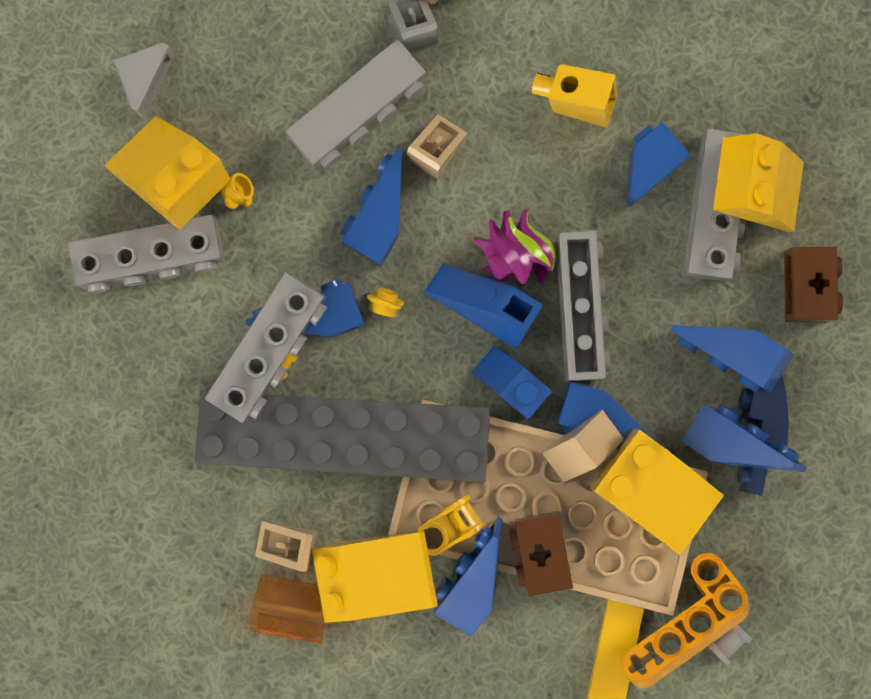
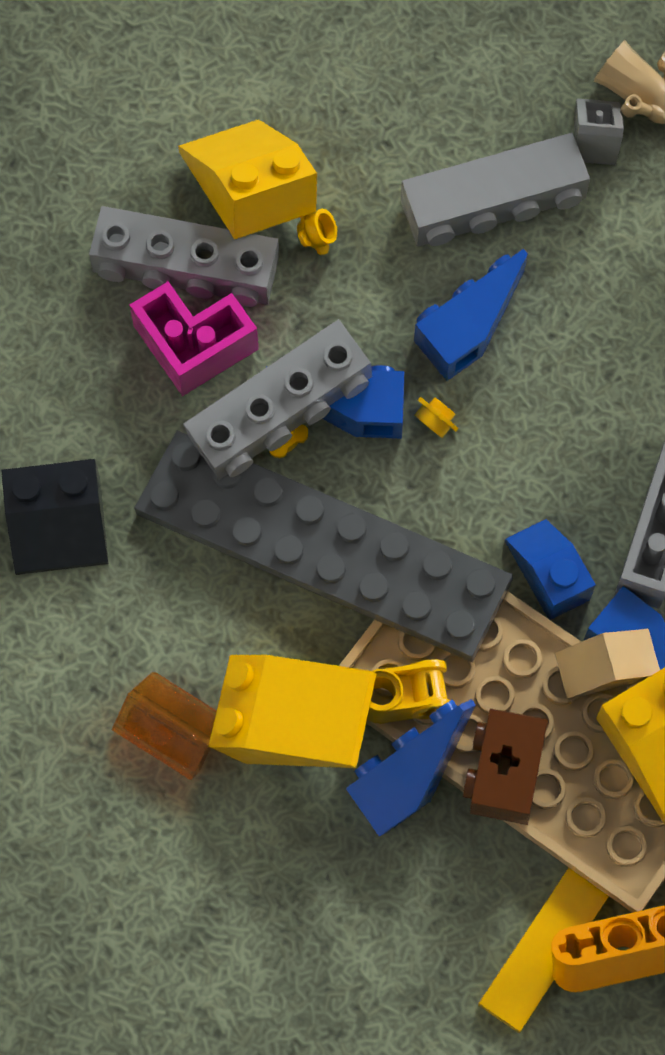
camera: 25 degrees right, 15 degrees down
(140, 494) = (55, 516): none -> black slope
(143, 75) = (267, 68): light grey slope -> none
(182, 326) = (193, 346): none -> dark pink brick
(286, 545) = (201, 644): tan slope -> none
(436, 146) = (565, 271): tan slope -> none
(485, 302) = (559, 464): blue slope -> none
(517, 250) = (617, 416): magenta hair -> none

